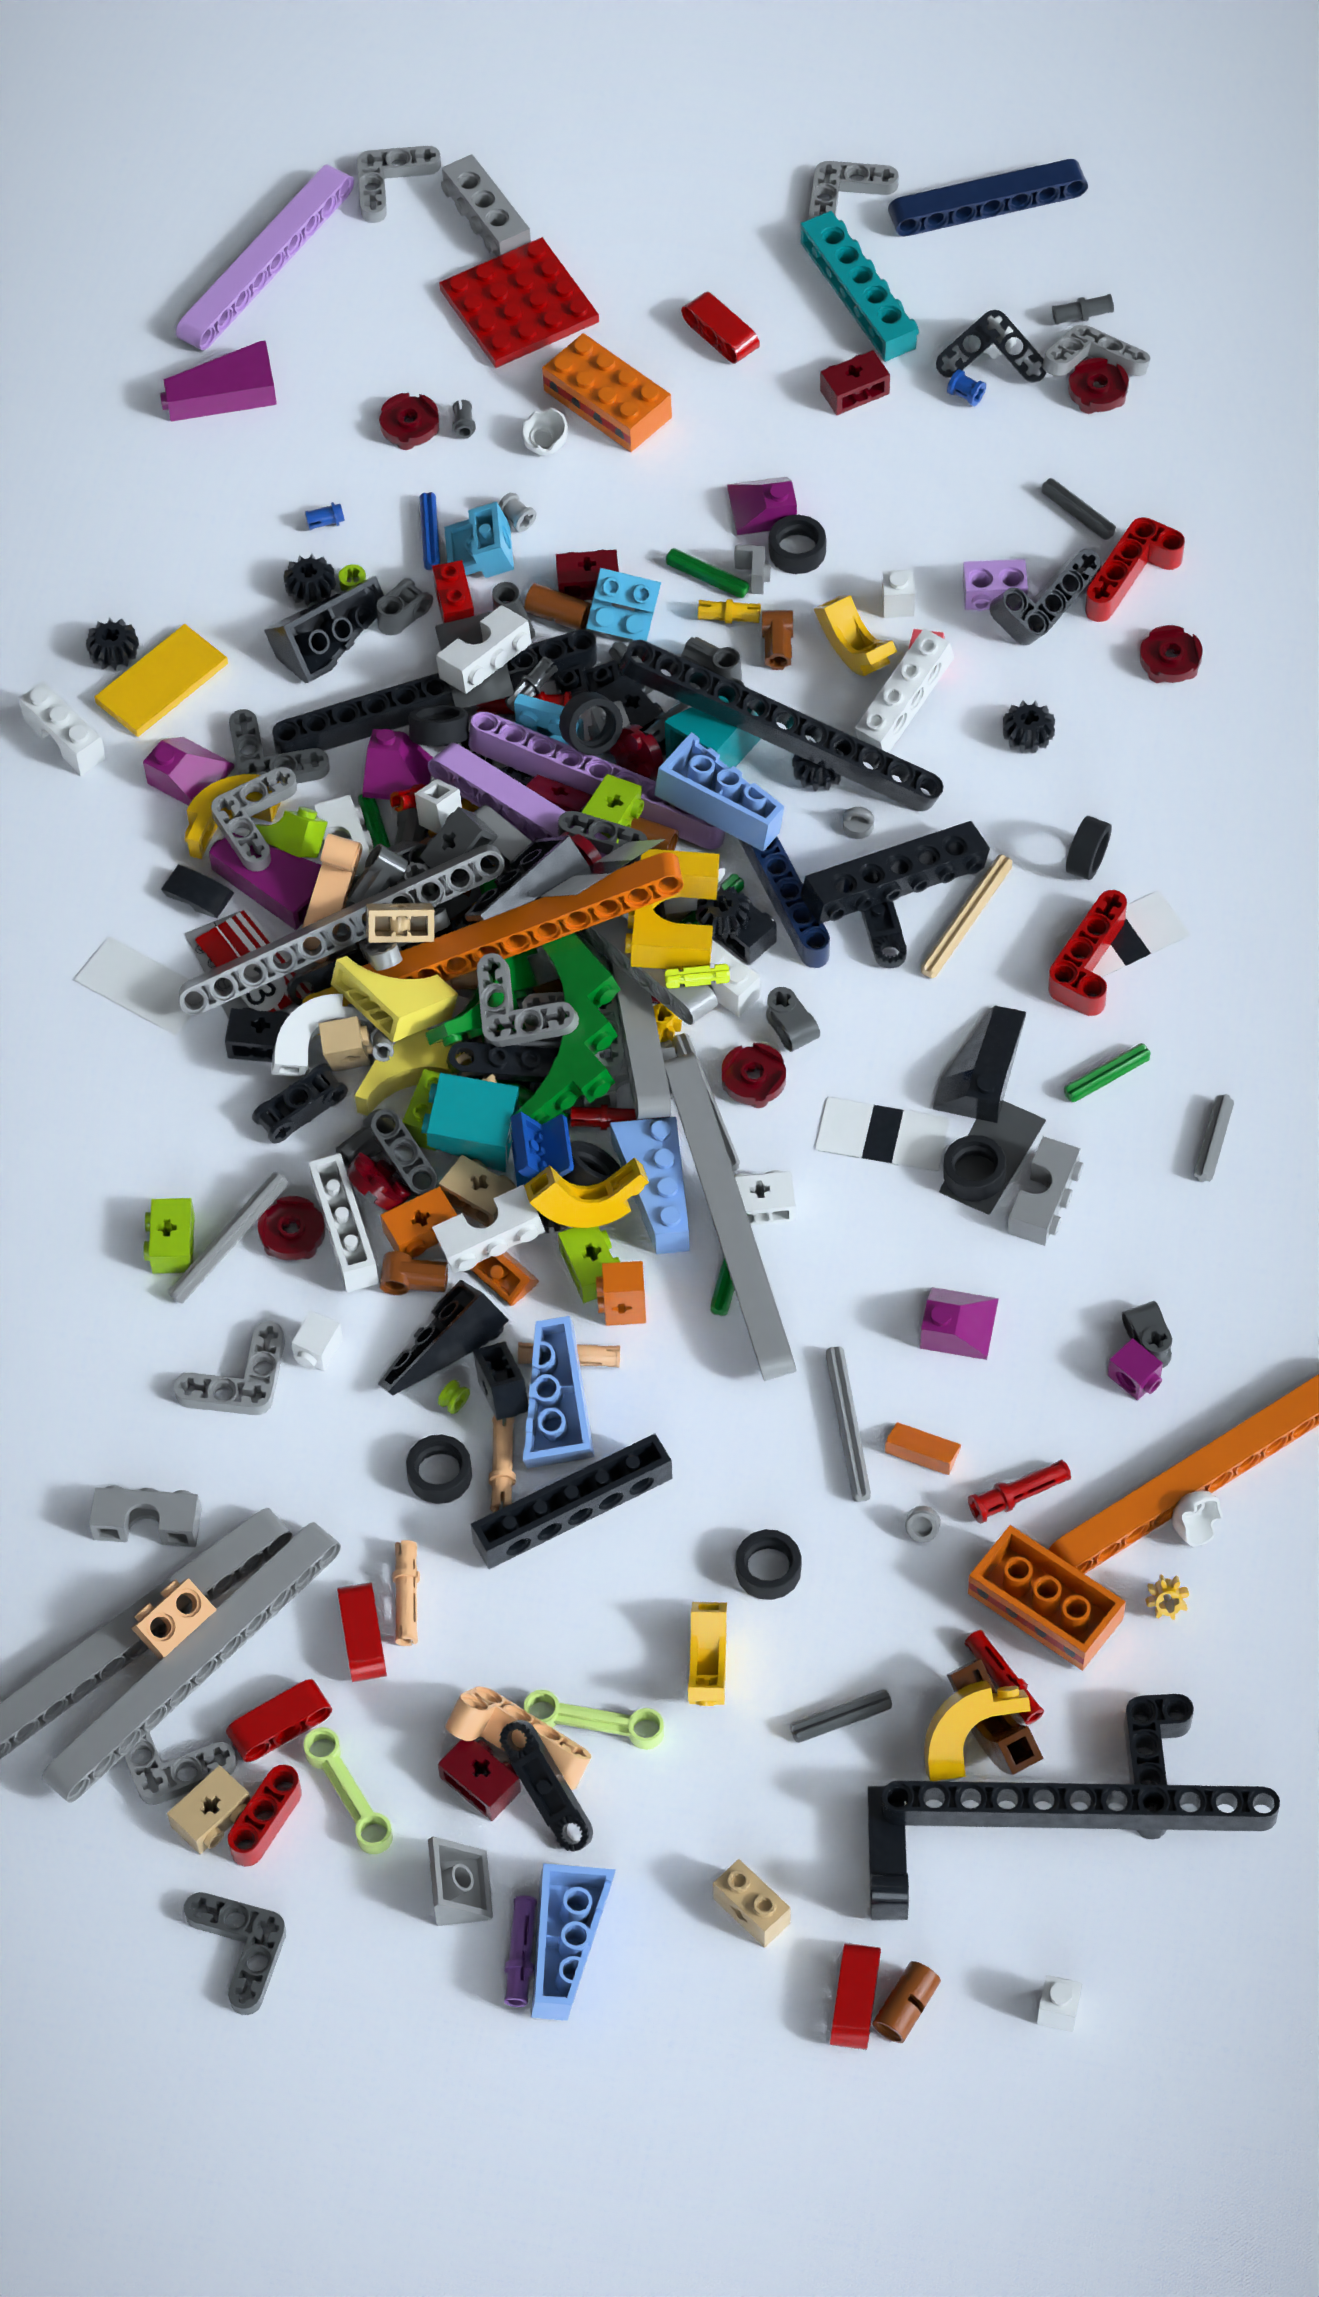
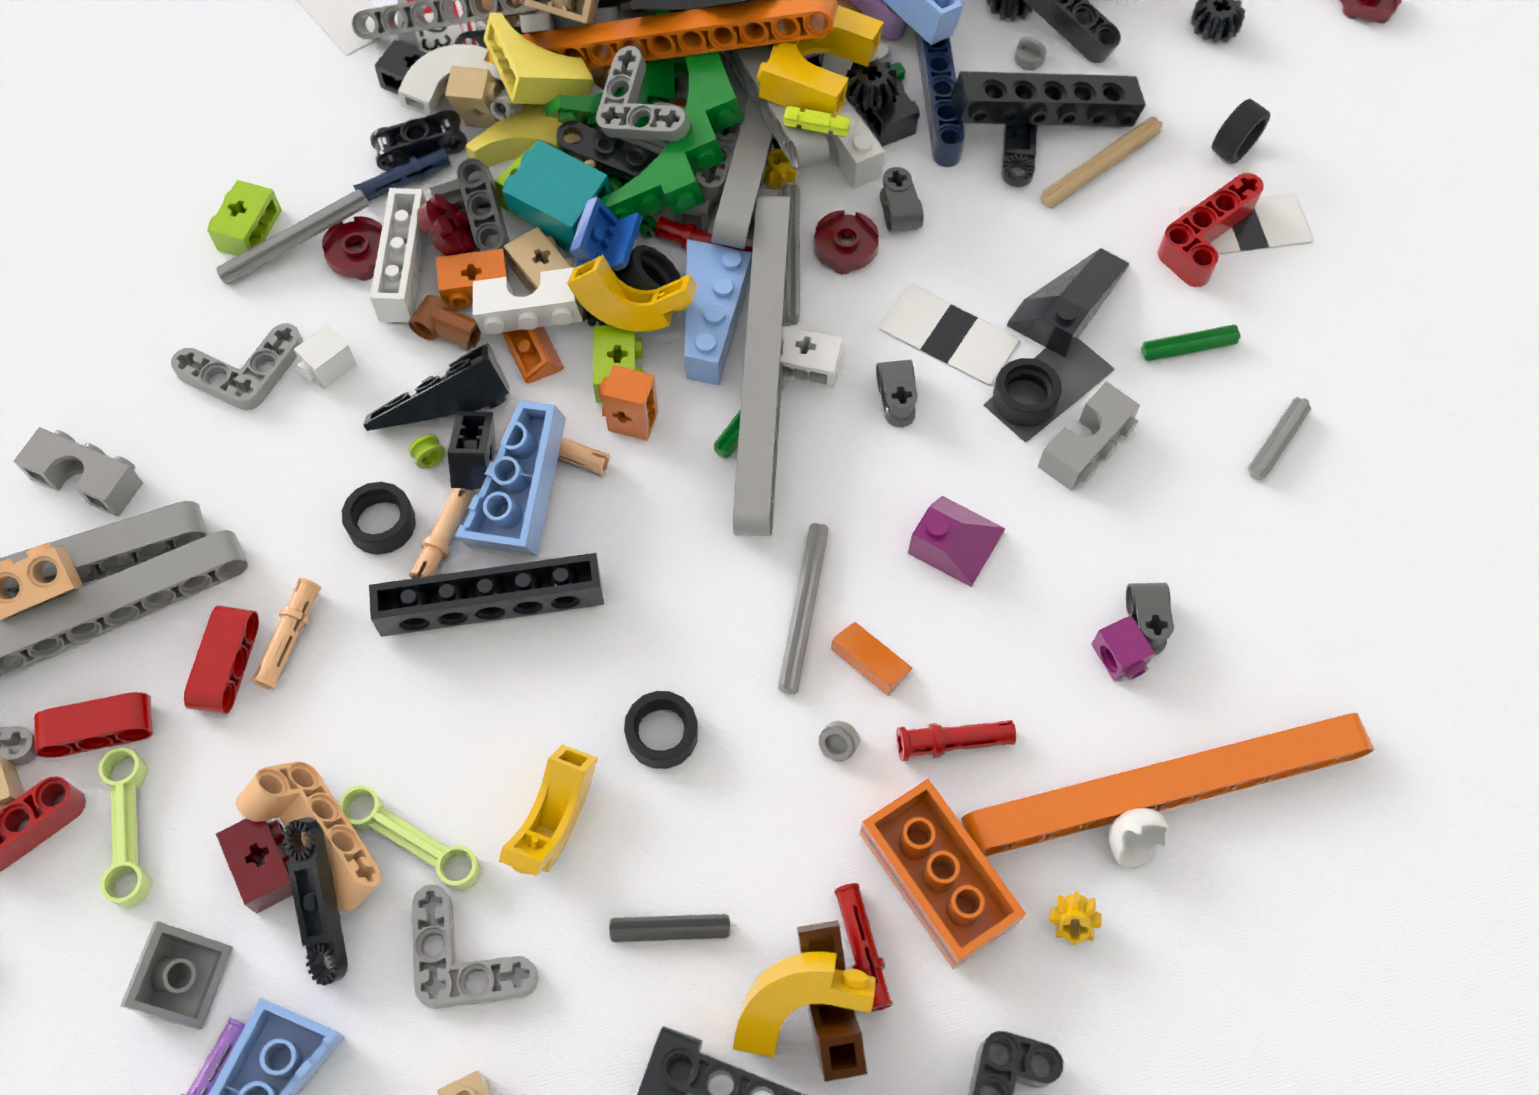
camera: 15 degrees right, 5 degrees up
(310, 1133) = (404, 174): none -> dark blue pin
(680, 1809) = (456, 974): none -> light grey beam
(857, 1203) = (897, 391): none -> dark grey piece

